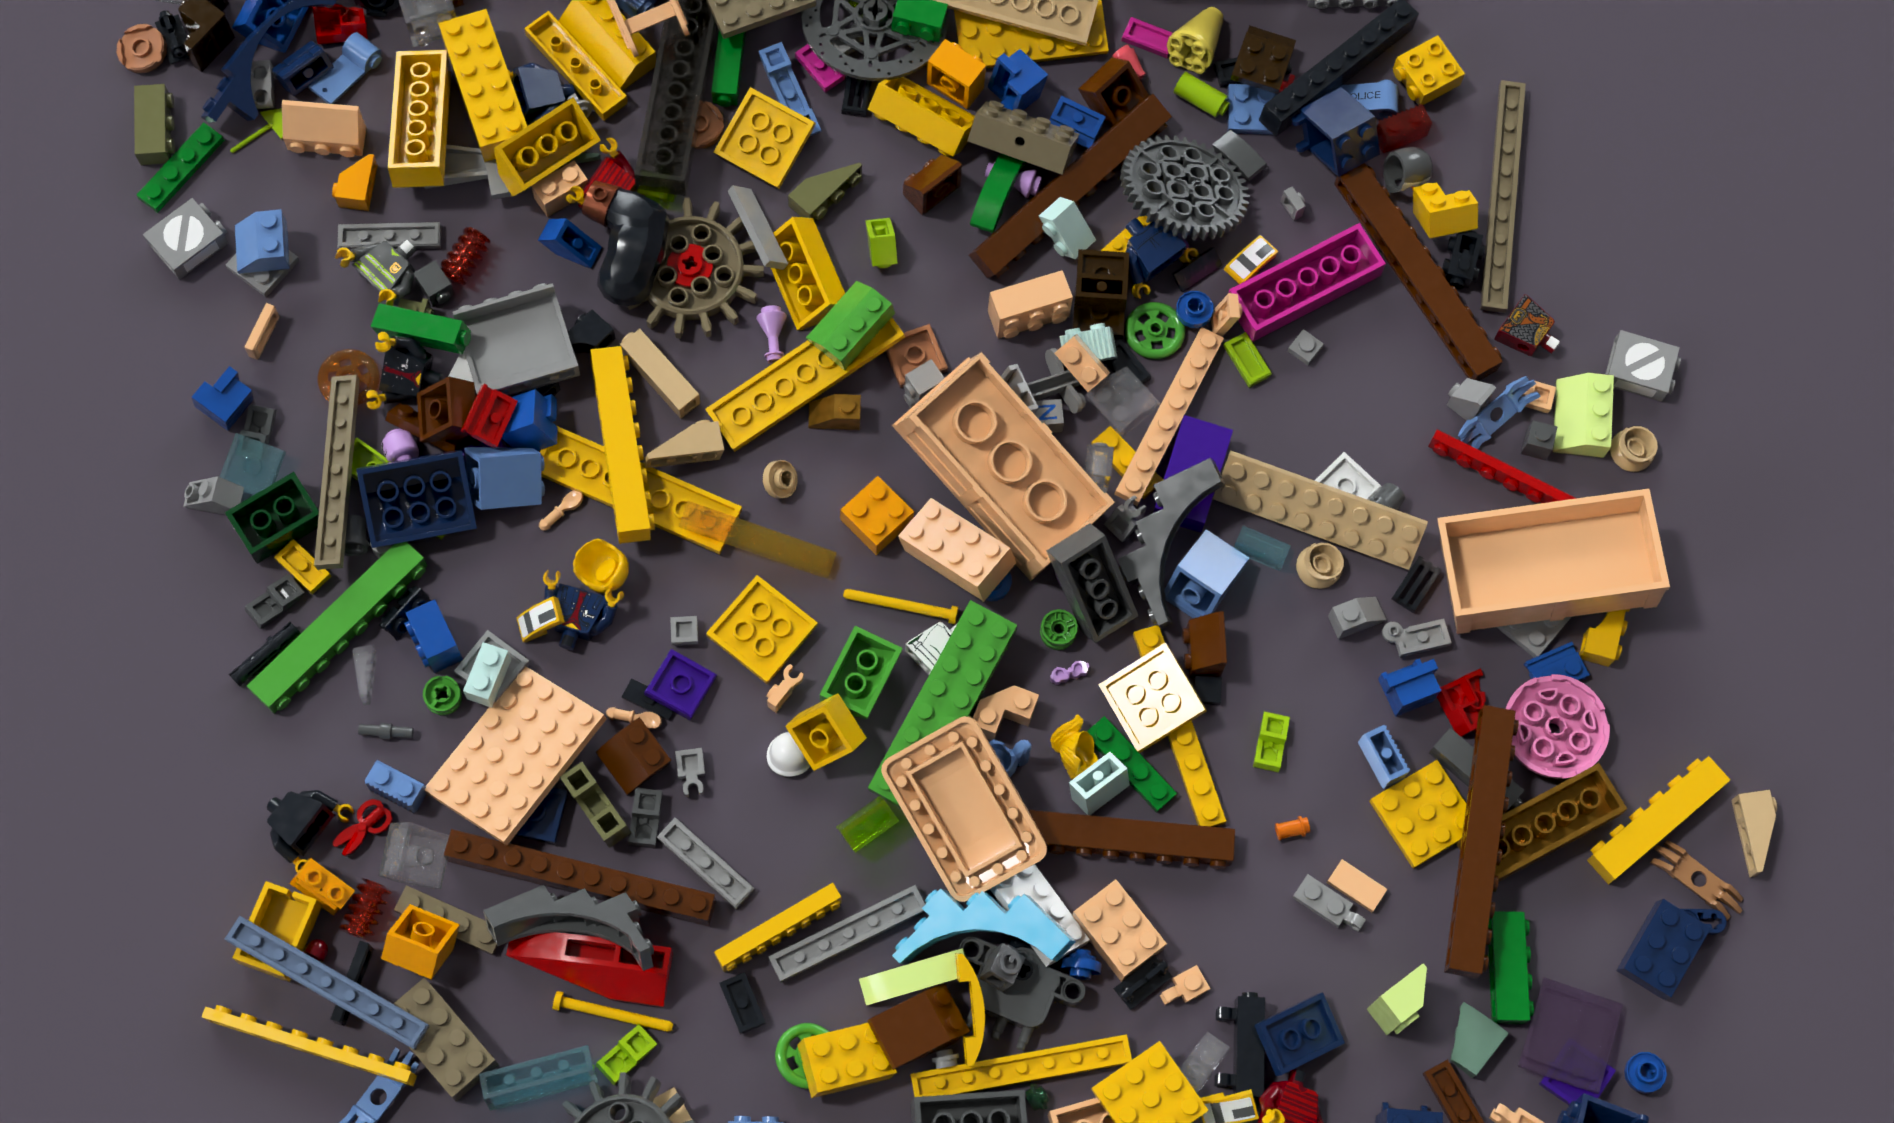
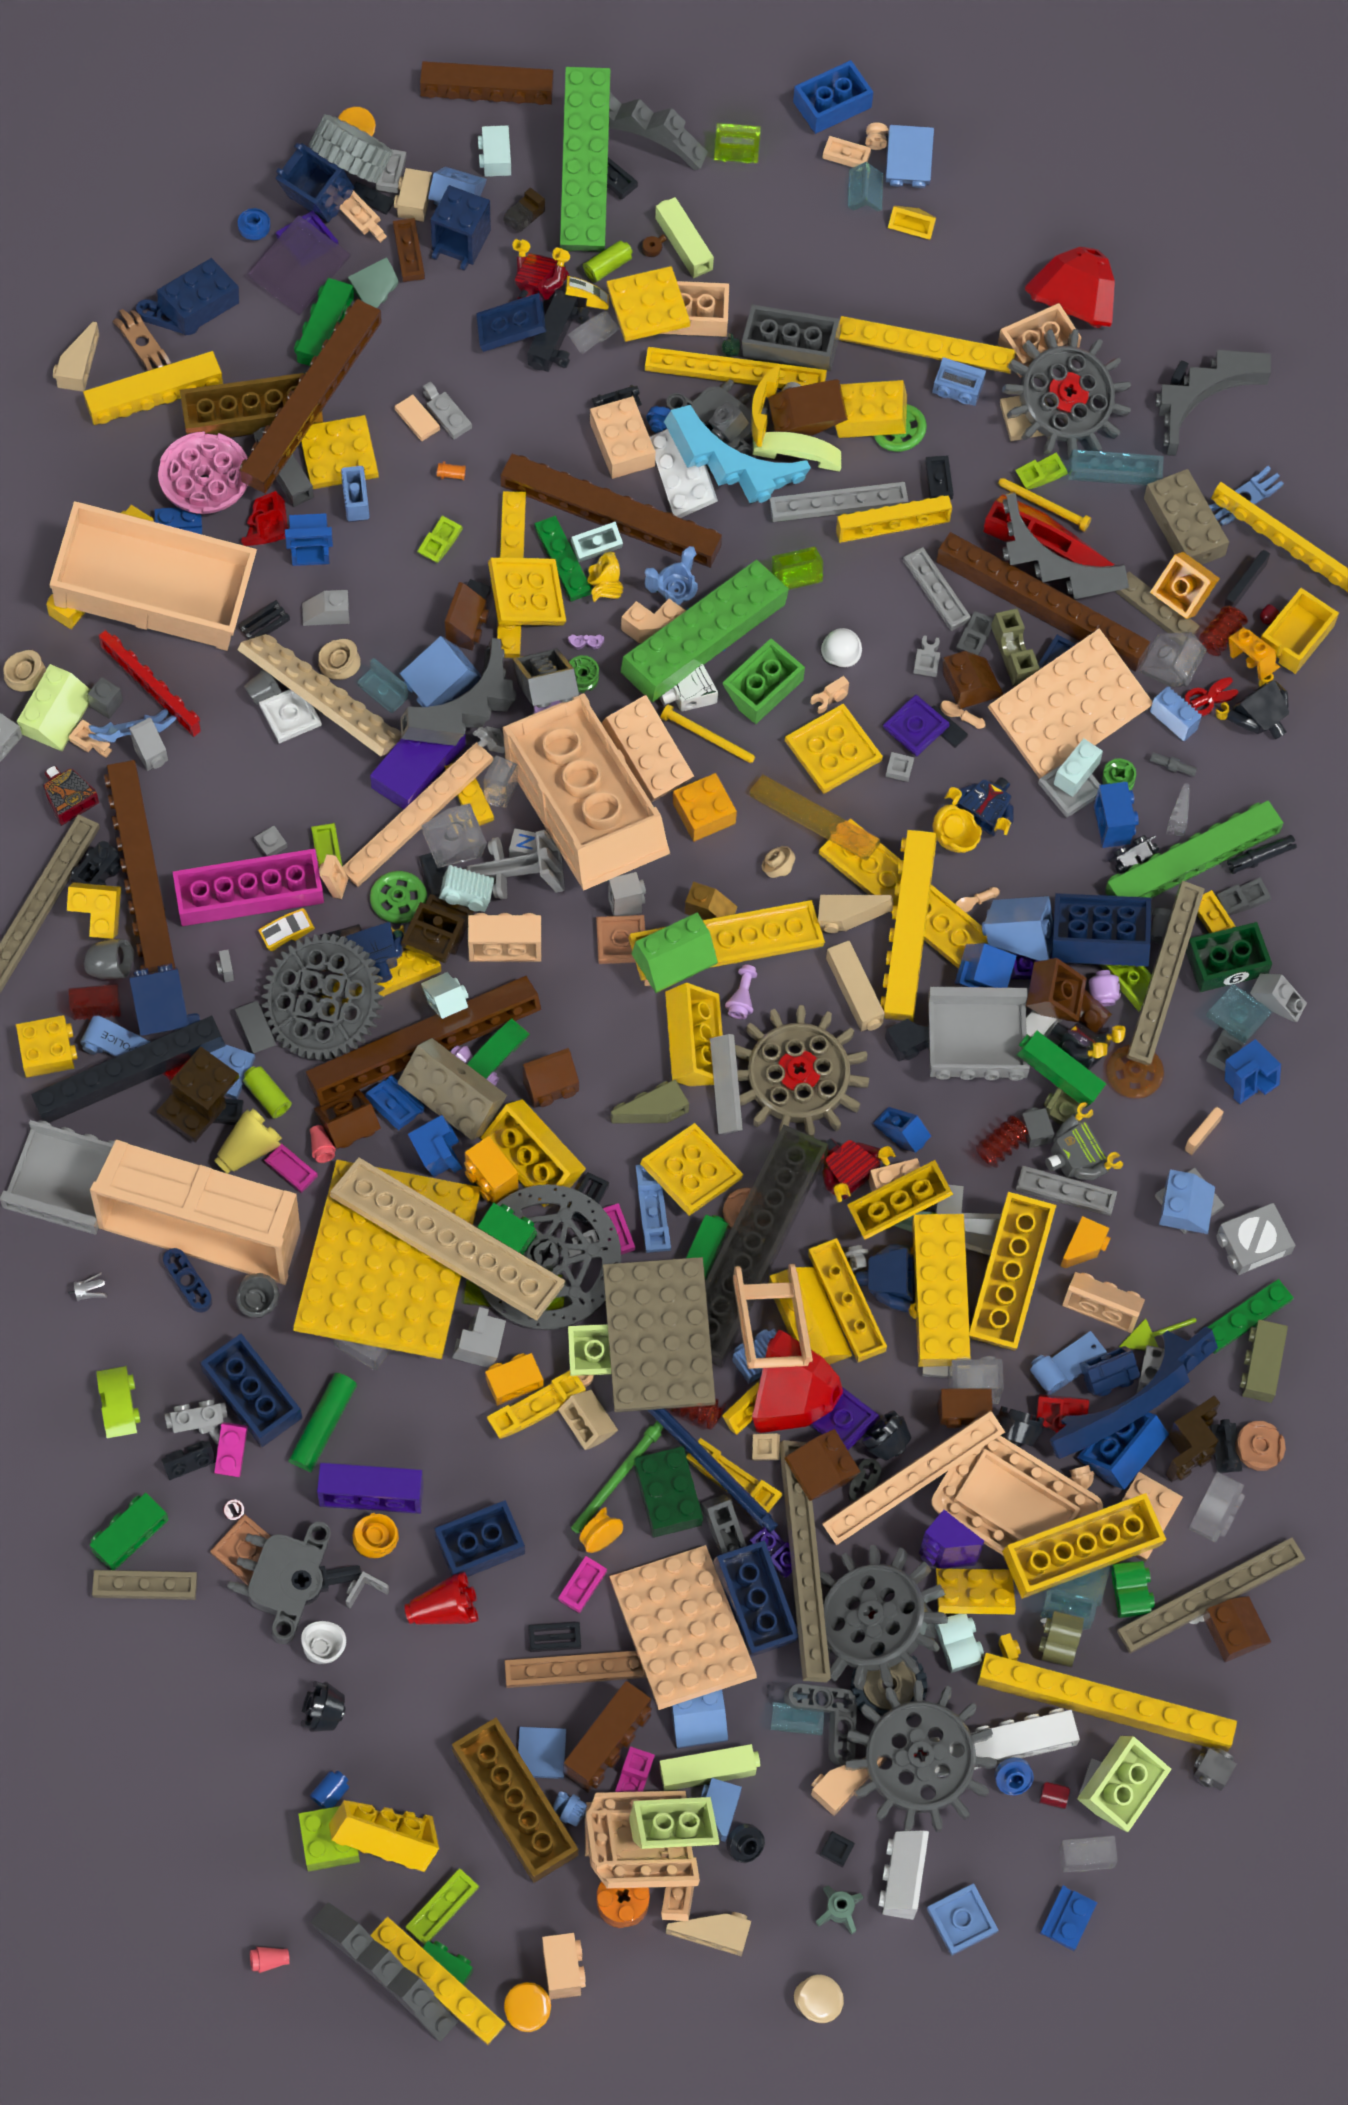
camera: 160 degrees left, 5 degrees down
(327, 982) = (1267, 570): sand blue tile -> none
(489, 415) = (1021, 964): red plate -> none
(540, 618) = (1020, 804): slope -> none
(634, 242) = (845, 1091): black piece -> none
(826, 732) = (809, 637): yellow brick -> none
(881, 242) = (616, 1045): lime slope -> none
(964, 808) = (718, 534): light nougat wedge -> none
(1082, 363) = (481, 862): light nougat brick -> none
(1187, 985) = (581, 389): light nougat plate -> none
(1194, 309) = (357, 897): blue plate -> none
(1400, 1003) = (424, 313): yellowish green slope -> none
(1417, 637) = (283, 578): light grey hinge -> none

